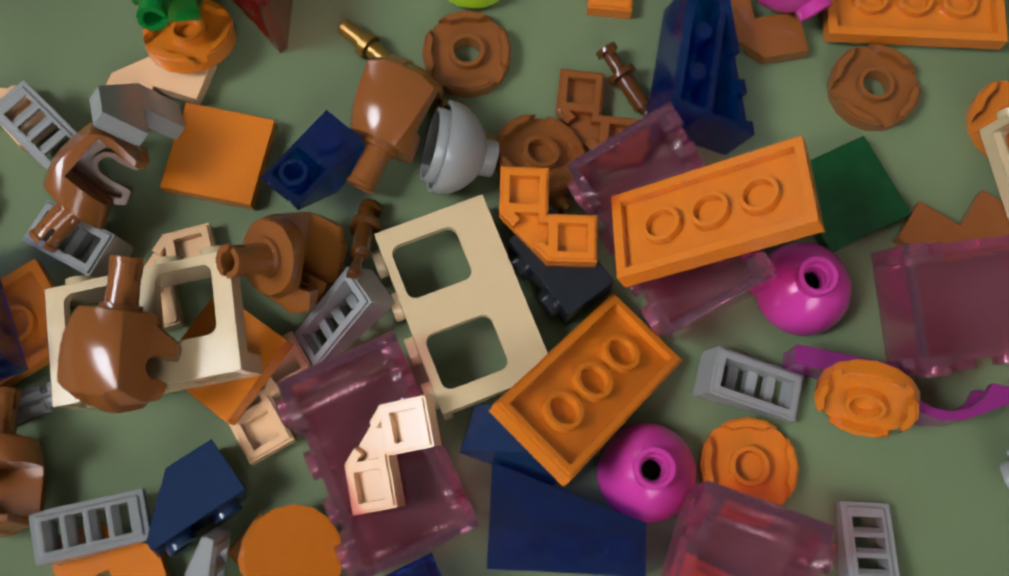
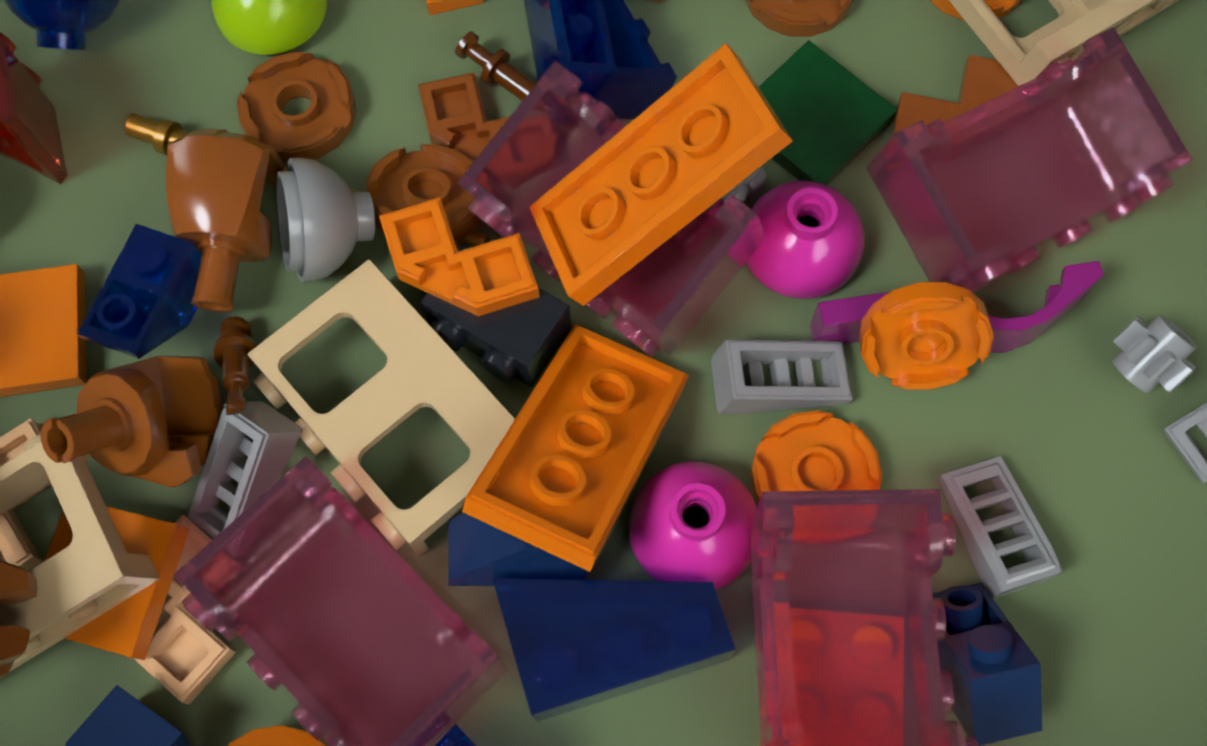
camera: 15 degrees left, 5 degrees down
(373, 465) = (344, 643): light nougat tile -> none

